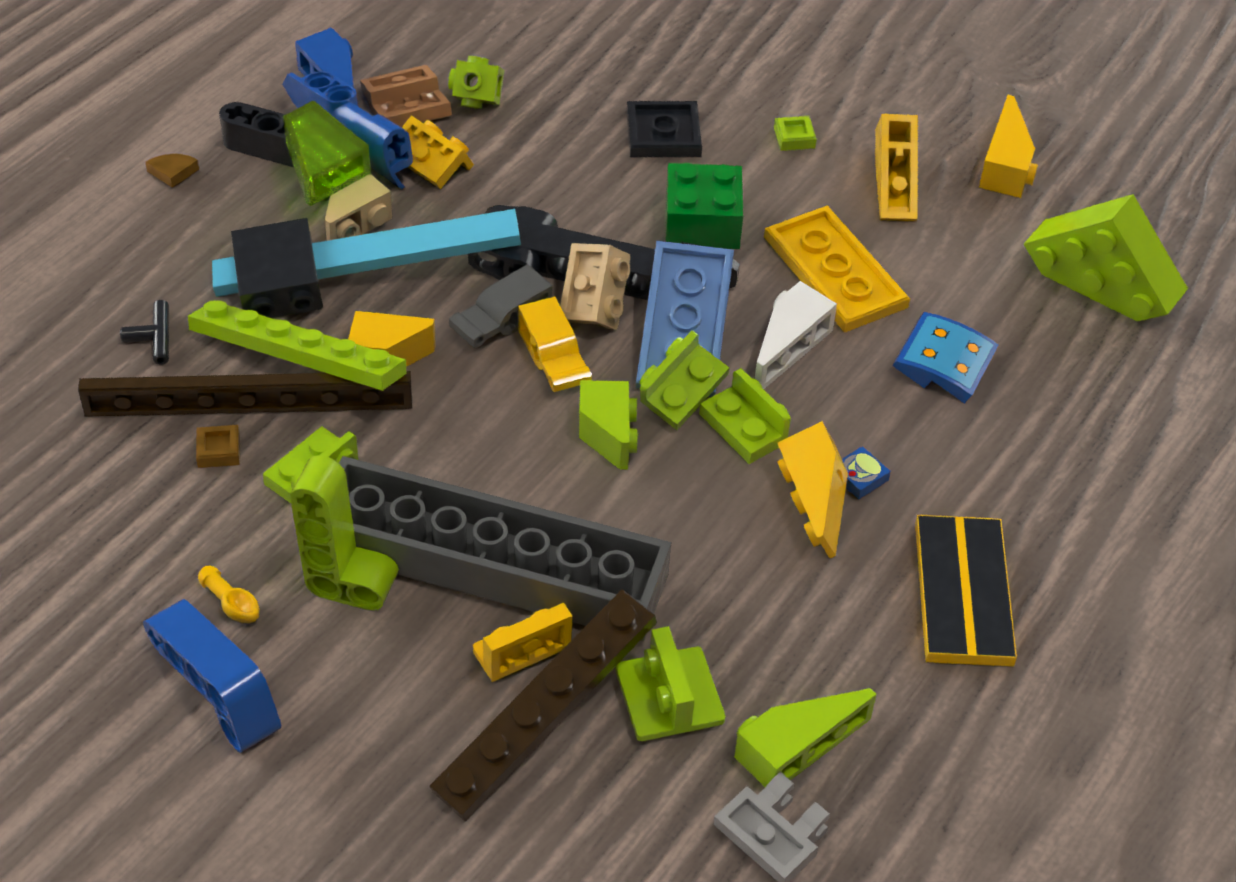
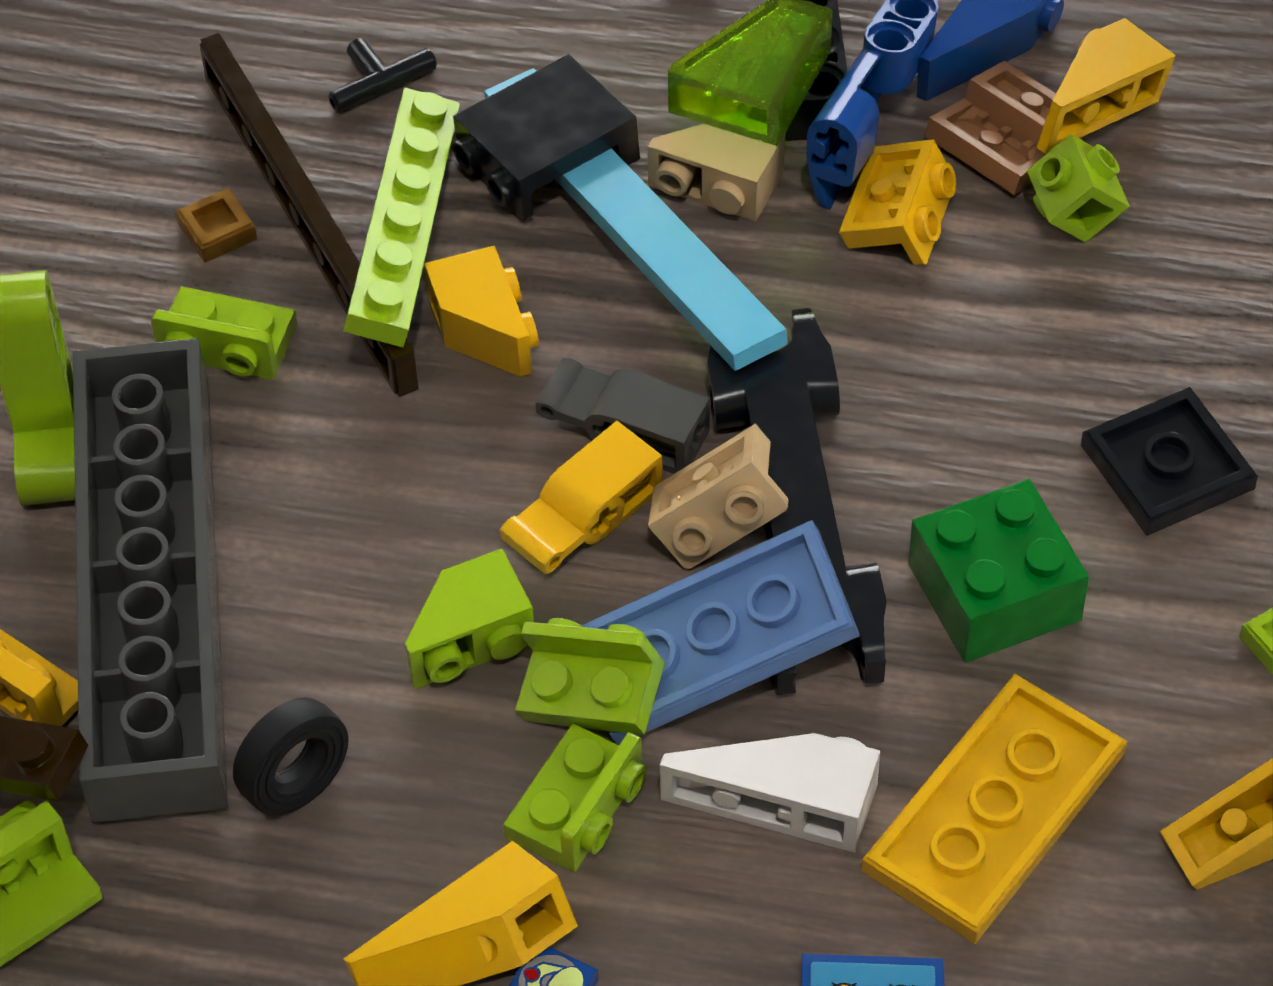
camera: 70 degrees right, 5 degrees up
(413, 46) = (1110, 78): none -> yellow slope
(667, 518) = (269, 743): none -> black tyre

